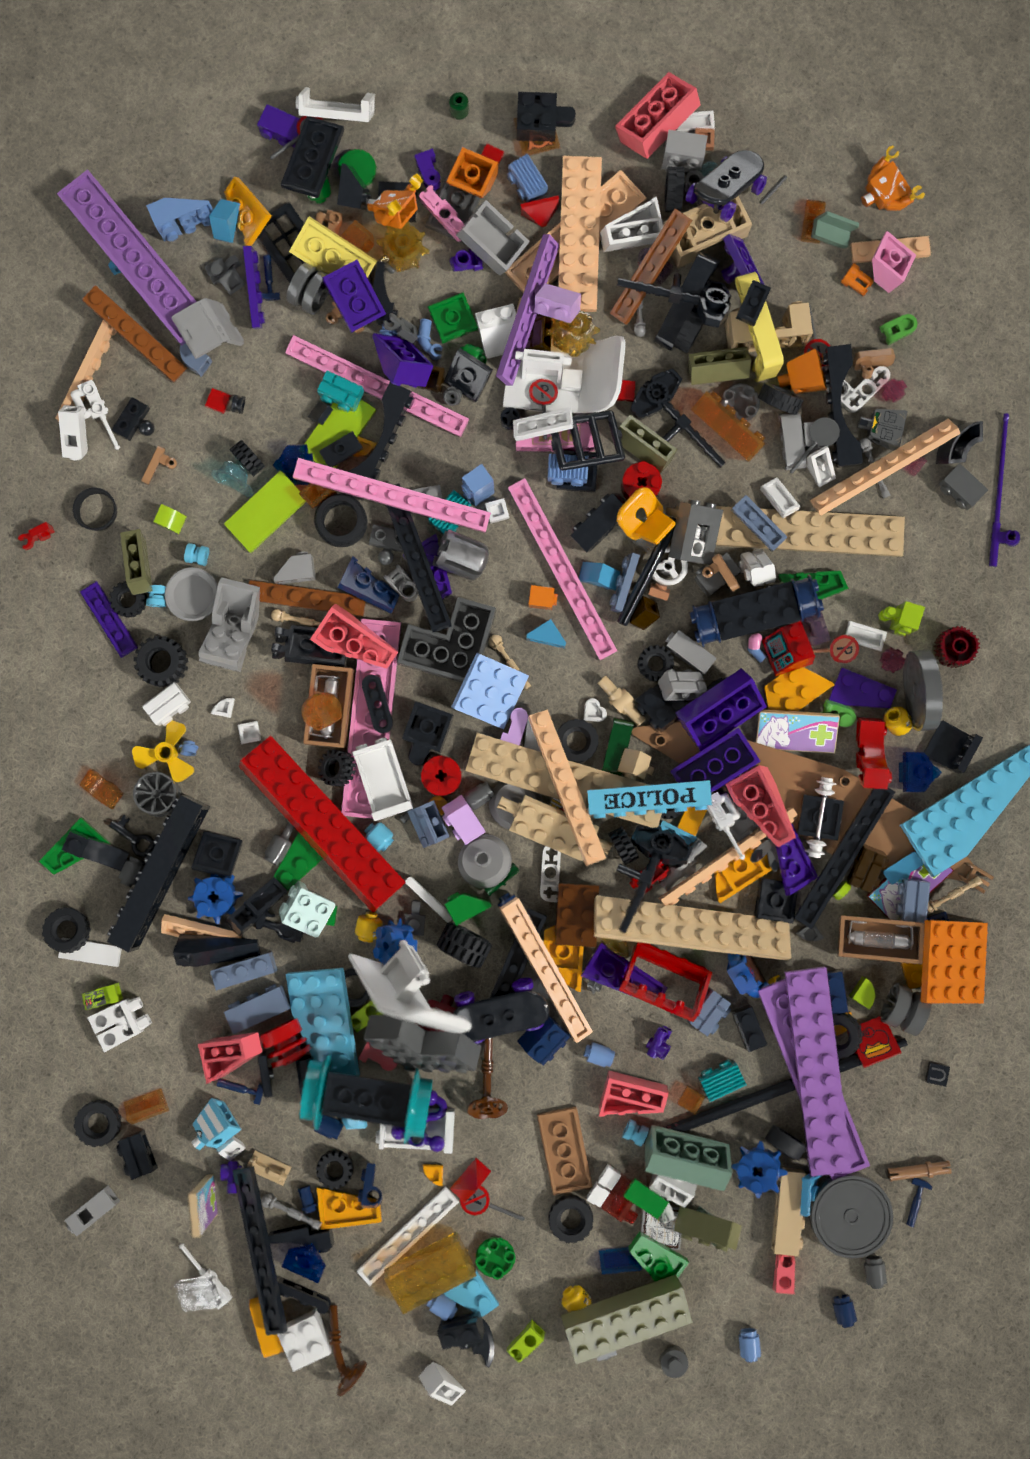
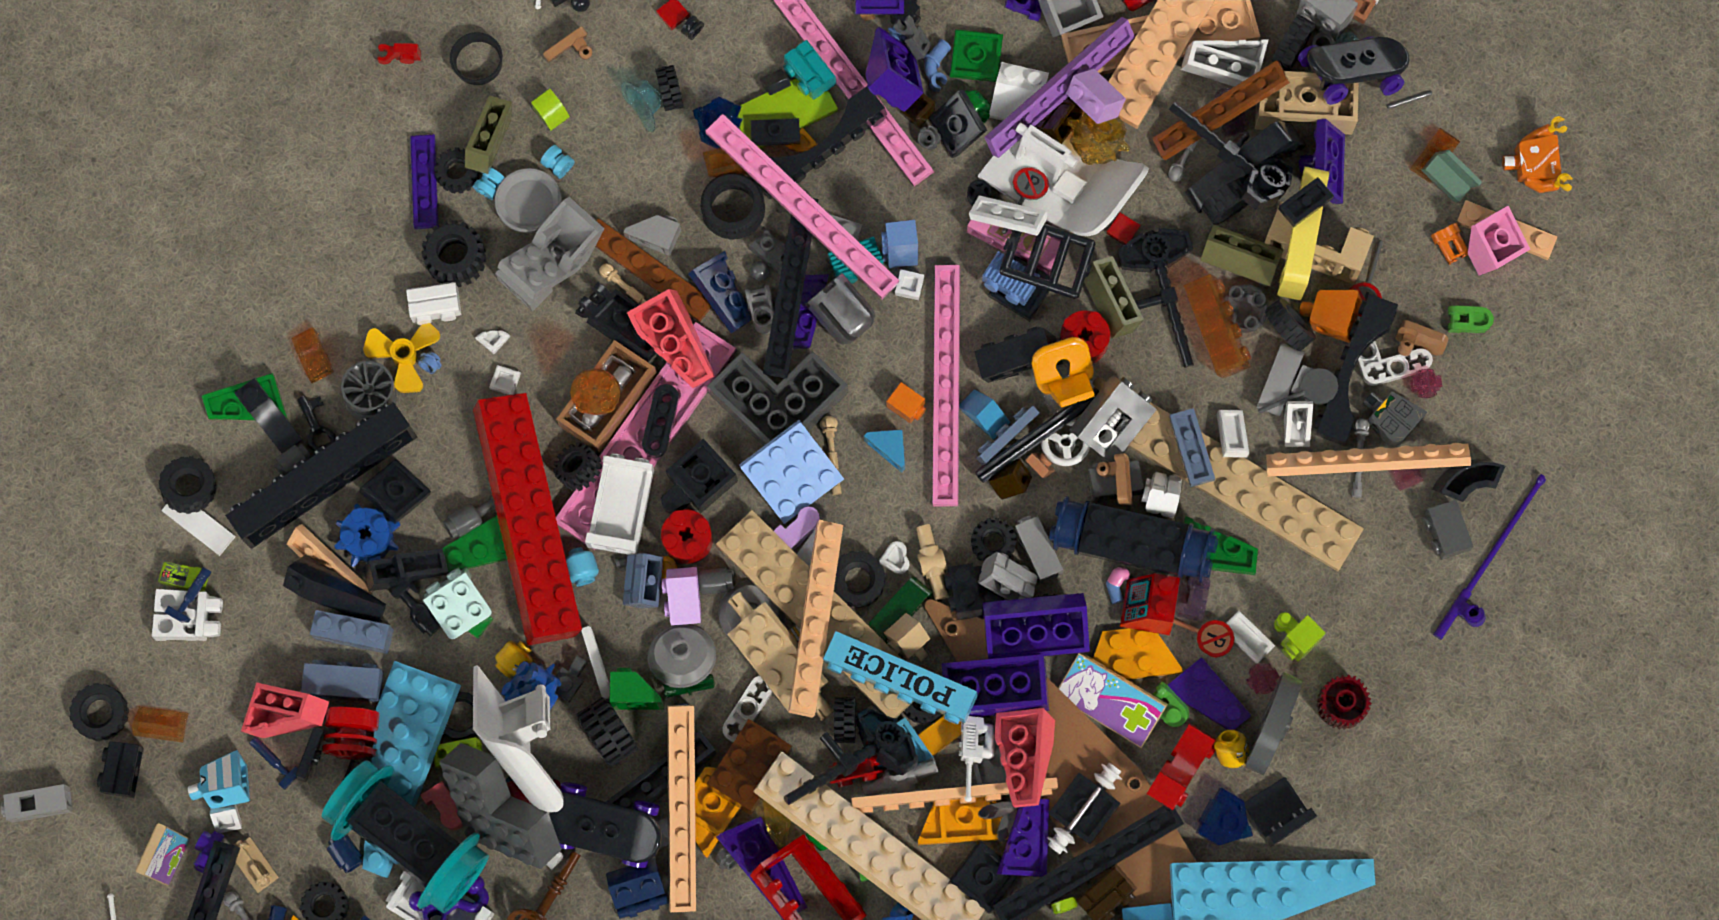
camera: 30 degrees right, 10 degrees down
(115, 1002) = (189, 597): none -> dark blue piece
(265, 512) = (656, 155): lime tile -> none

